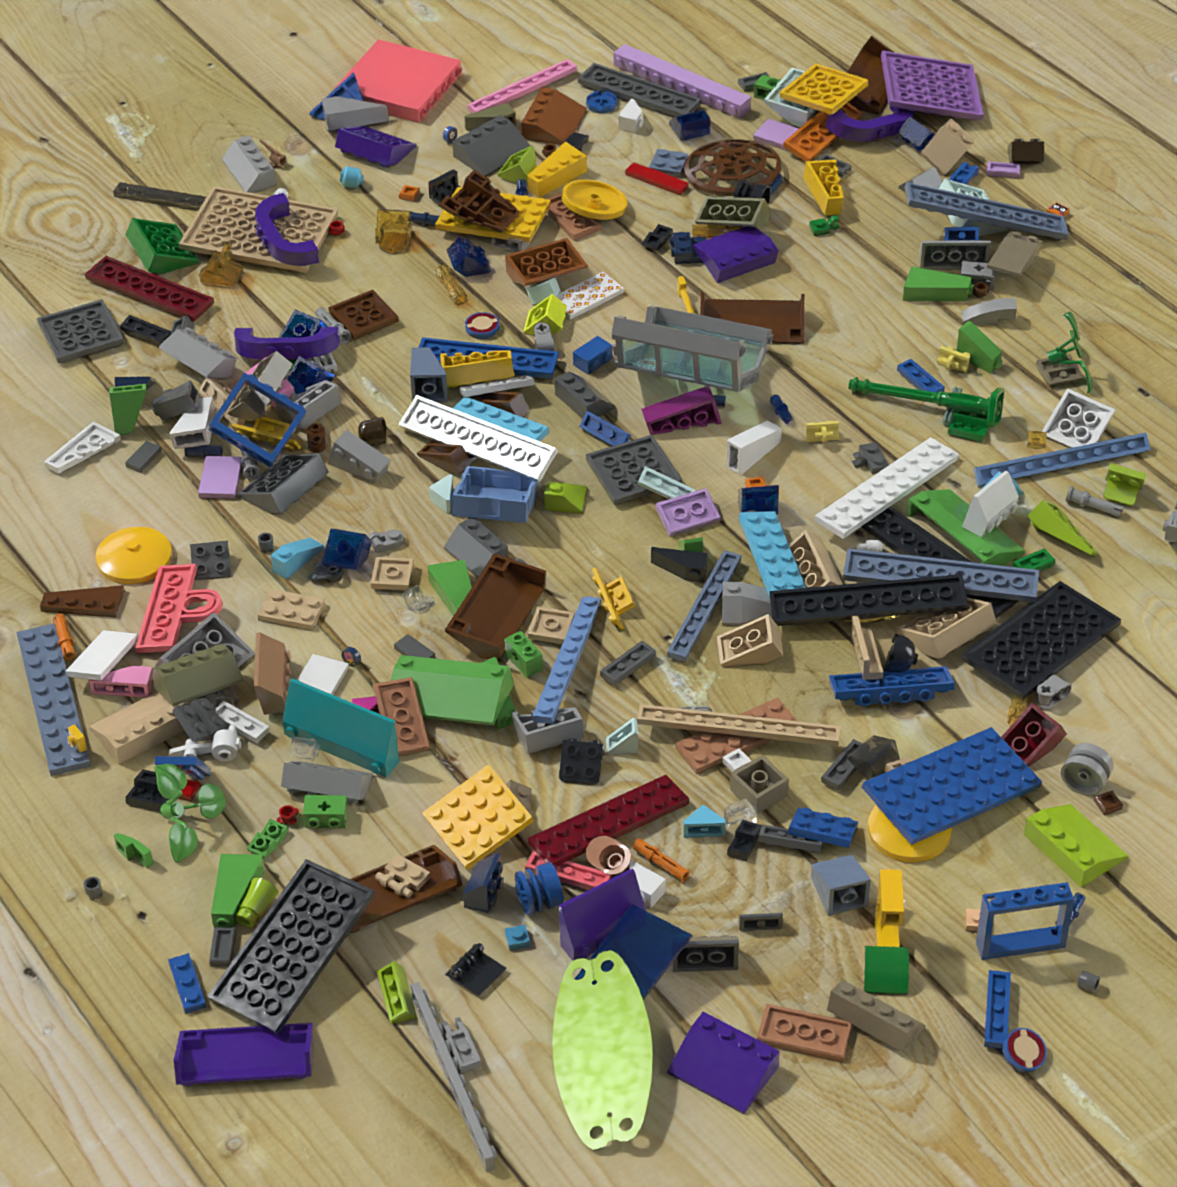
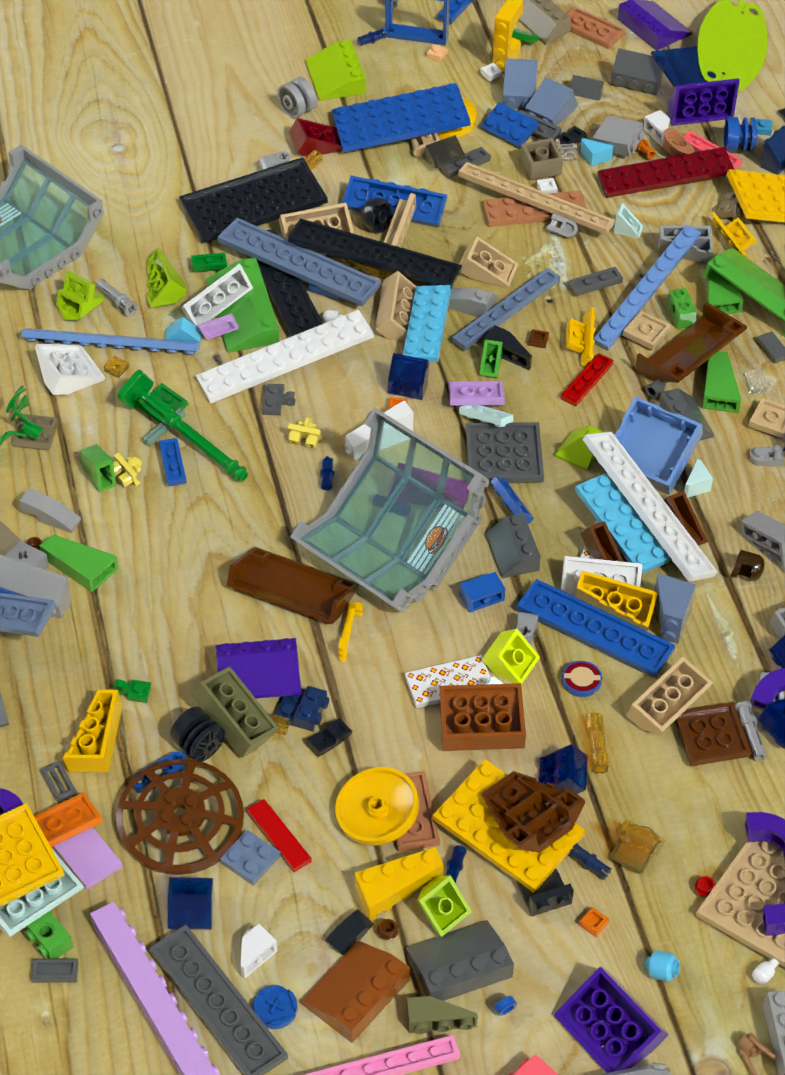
camera: 160 degrees left, 5 degrees up
(405, 319) = (669, 697): none -> tan slope
(500, 759) = (736, 232): none -> yellow bracket
(581, 761) = (664, 216): black bracket -> none
(590, 558) = (587, 379): none -> red tile
(657, 589) = (538, 338): none -> reddish brown tile
(683, 842) = (621, 133): none -> light grey brick
(787, 873) = (552, 102): none -> sand blue slope
(965, 492) = (218, 326): none -> lavender tile

